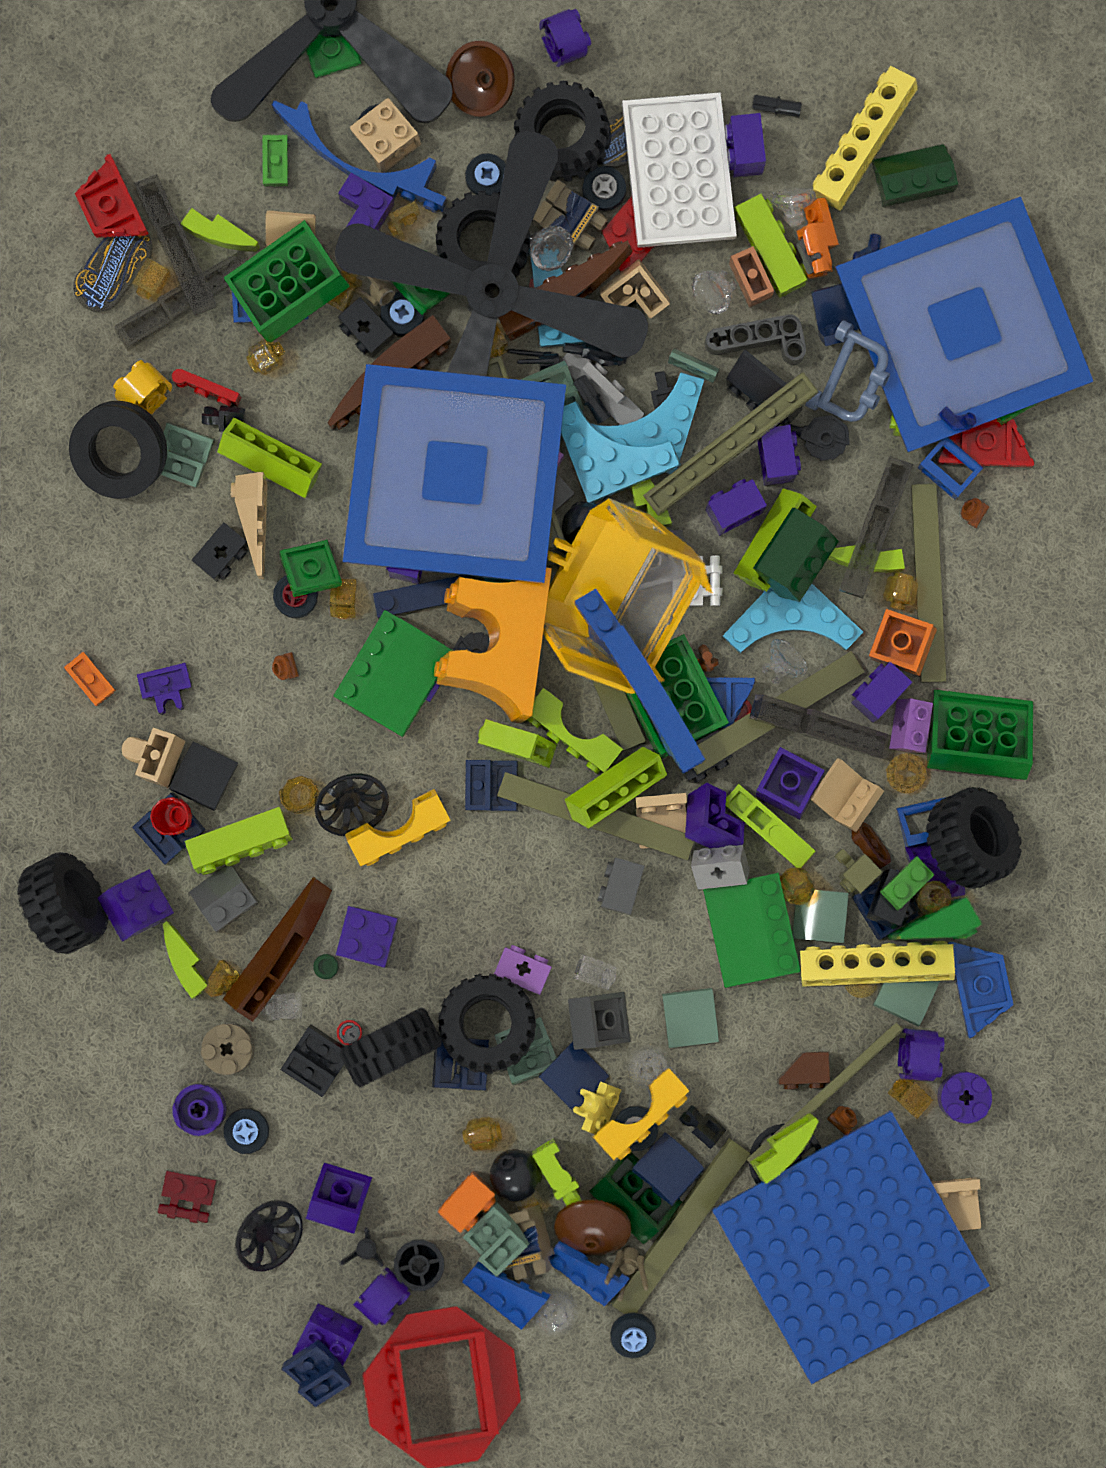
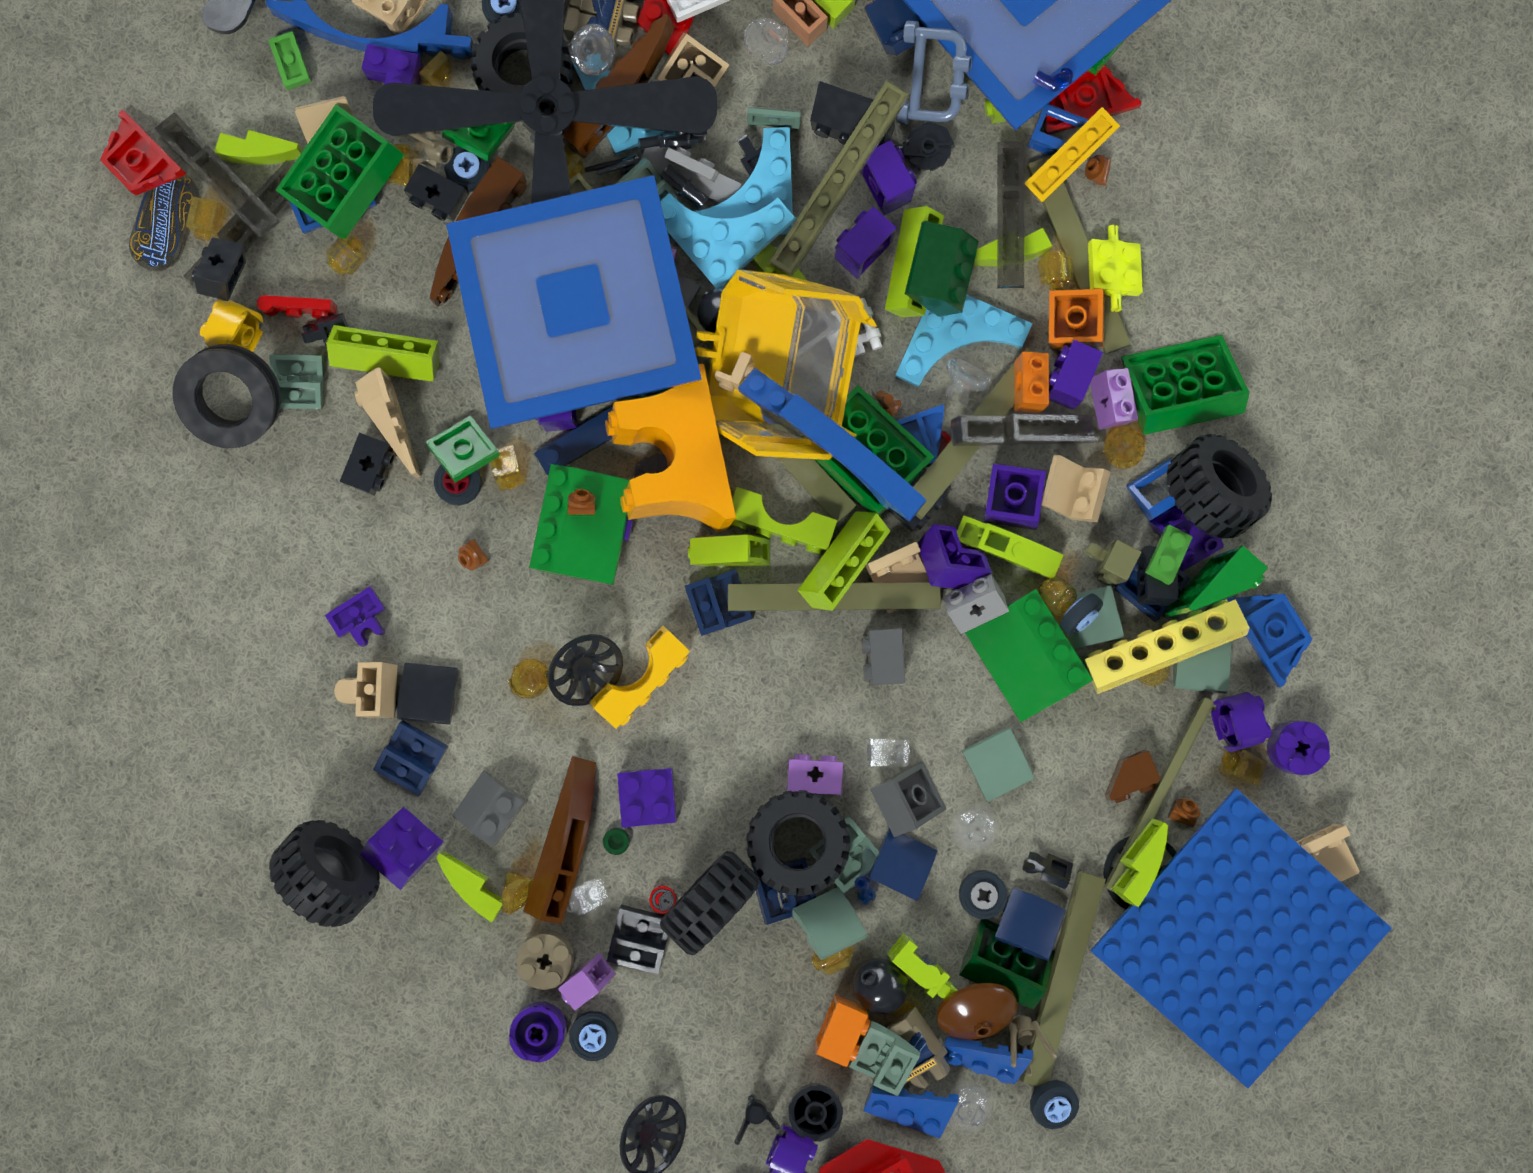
camera: 20 degrees left, 0 degrees up
(89, 679) = (279, 636): orange plate -> none
(150, 332) = (219, 269): none -> black brick
(171, 816) = (407, 745): red hair -> none
(188, 1188) = (556, 1114): dark red plate -> none
(238, 841) = (484, 746): lime brick -> none
(257, 1079) = (586, 981): none -> medium lavender brick
(338, 1198) = (710, 1071): dark purple slope -> none
(399, 654) = (581, 503): none -> dark orange plate
(489, 1104) = (829, 923): none -> sand green slope
(534, 1089) = (868, 892): none -> clear blue arm
(581, 588) = (741, 371): none -> tan bracket
(597, 1106) = (938, 887): light yellow plate -> none
(665, 1093) = (1002, 850): yellow arch -> none
(754, 340) = (817, 66): dark grey beam -> none
(810, 909) = (1081, 614): none -> black wheel
(840, 686) = (1031, 382): none -> orange brick
(871, 845) = (1115, 530): reddish brown plate -> none
(940, 893) = (1199, 560): clear yellow head -> none
(951, 492) = (1072, 154): none -> yellow plate
(956, 607) = (1115, 267): none -> neon yellow plate

